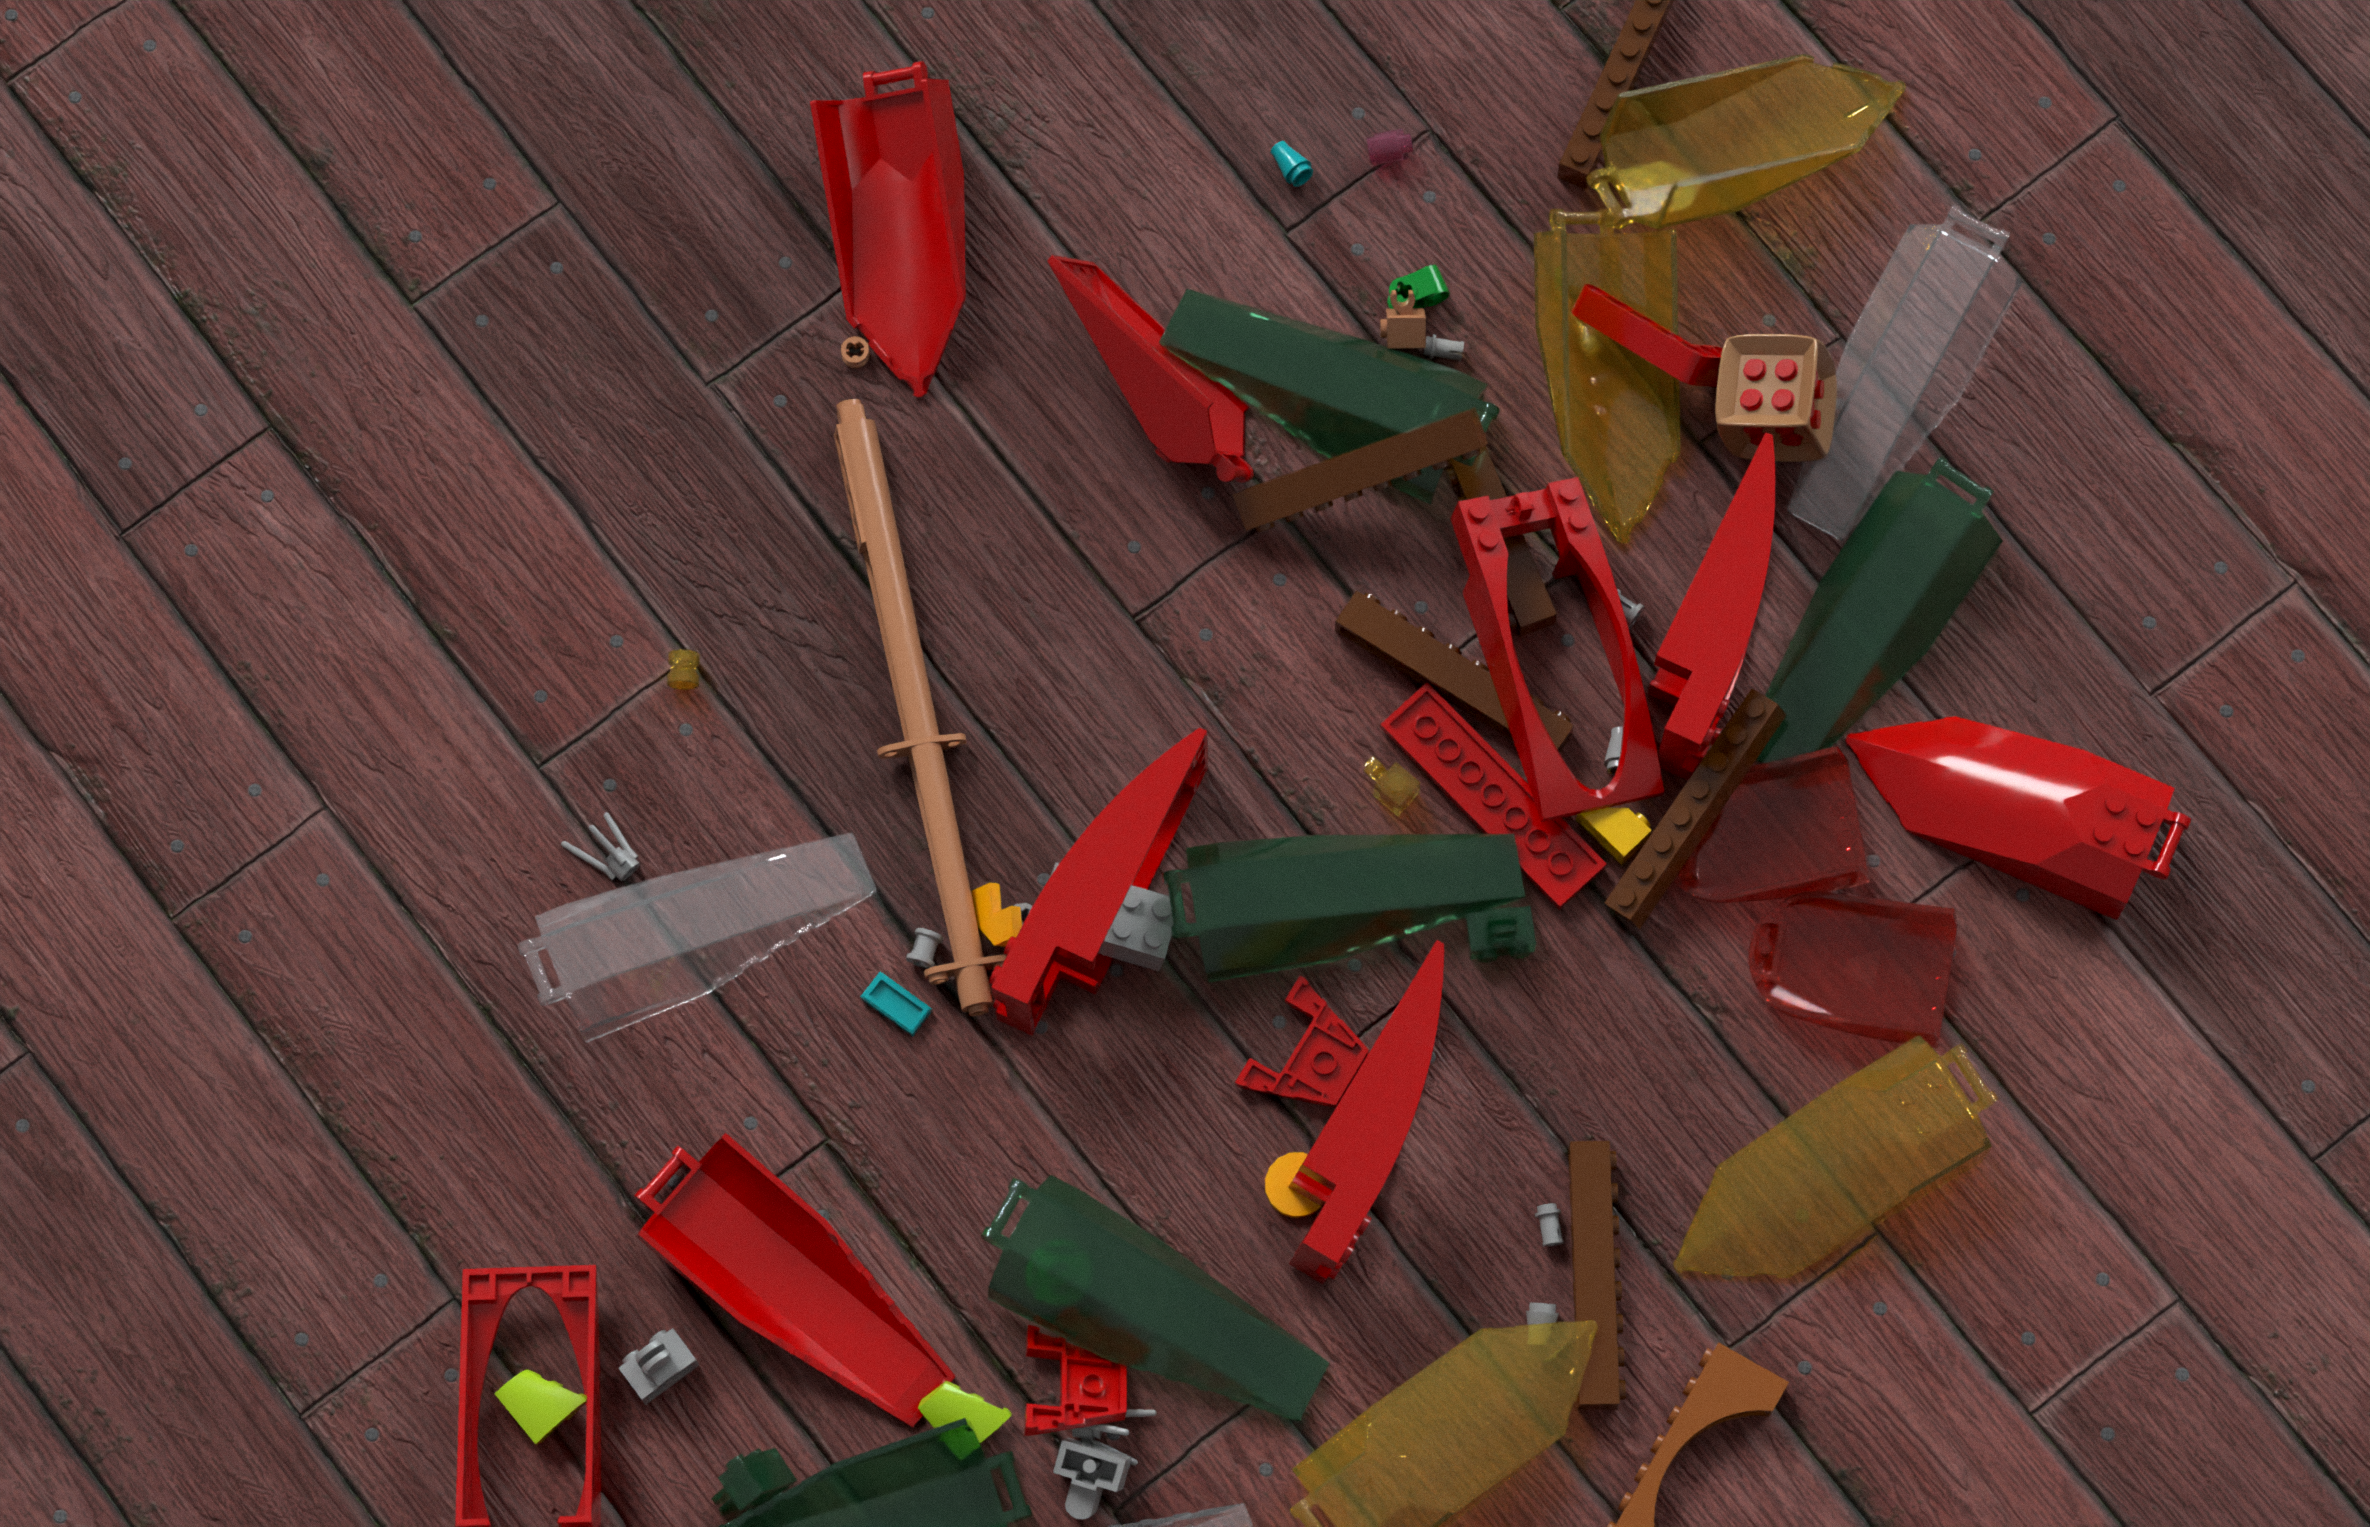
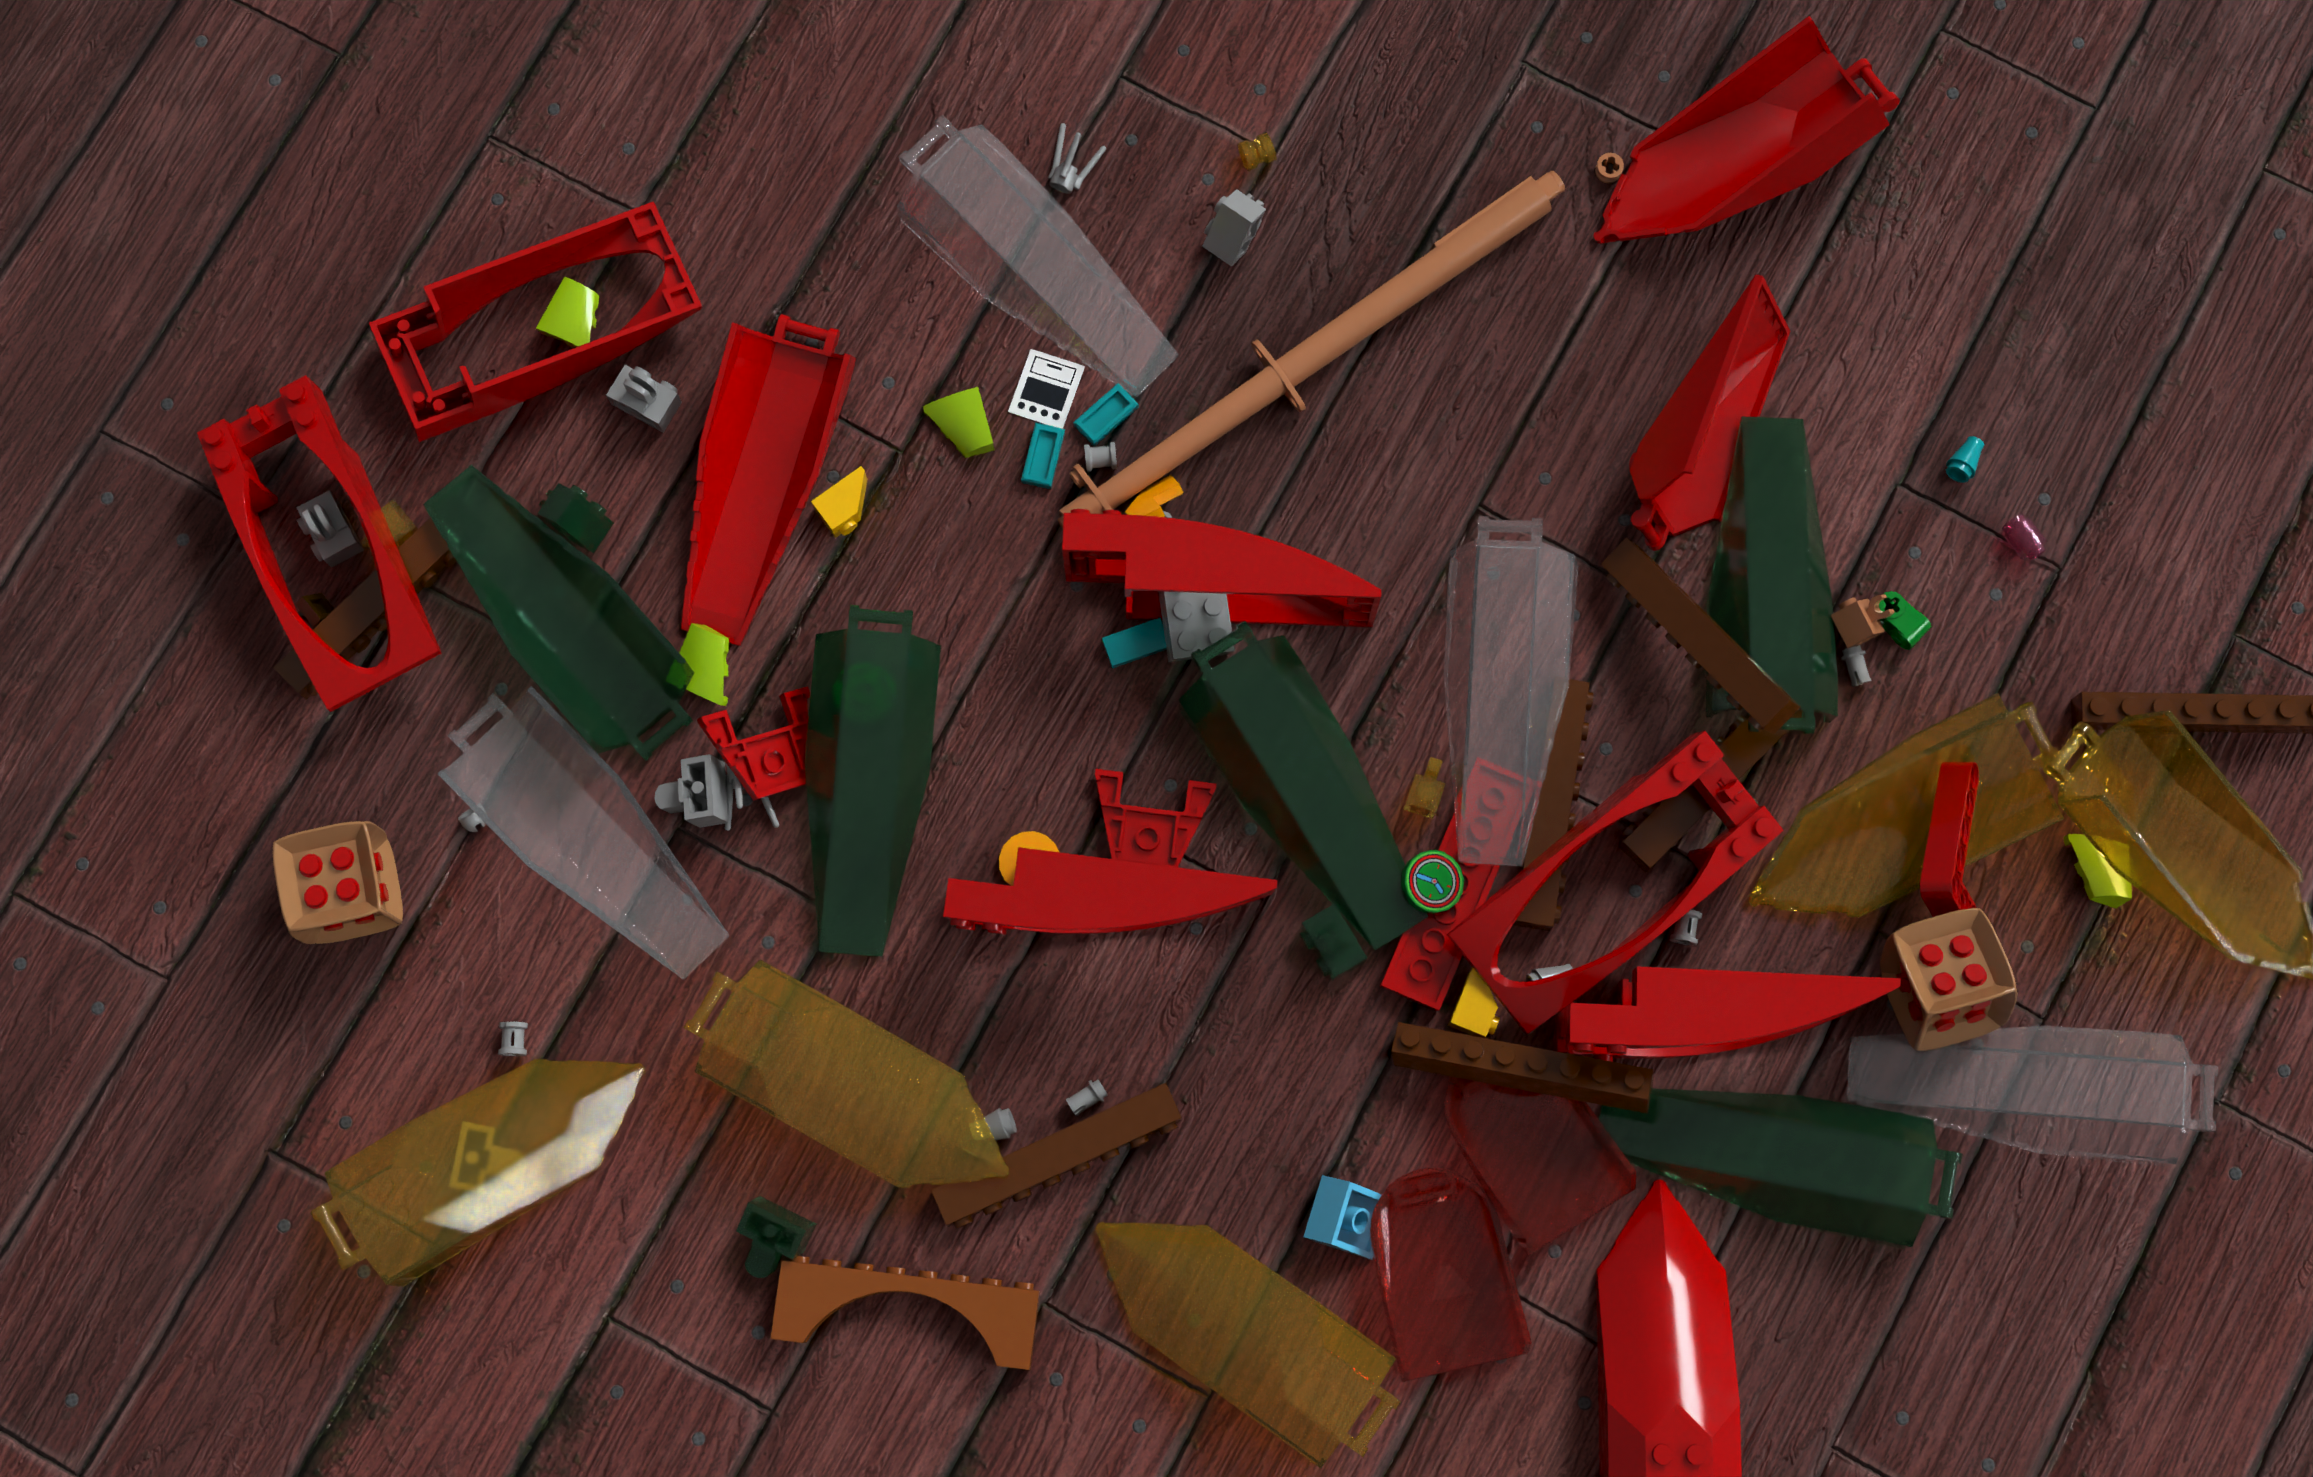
camera: 65 degrees right, 5 degrees up
(755, 721) = (1233, 226): none -> light grey brick
(826, 1064) = (963, 421): none -> lime slope
(828, 973) = (1046, 389): none -> white sticker
(859, 1215) = (842, 503): none -> yellow slope
(882, 926) = (1106, 414): none -> teal tile
(1125, 994) = (1135, 643): none -> teal tile
(1323, 667) = (1505, 682): none -> clear windscreen
(1484, 814) = (1432, 881): none -> tile
(1738, 227) = (2100, 879): none -> lime slope
(1763, 1034) = (1342, 1216): none -> medium azure slope

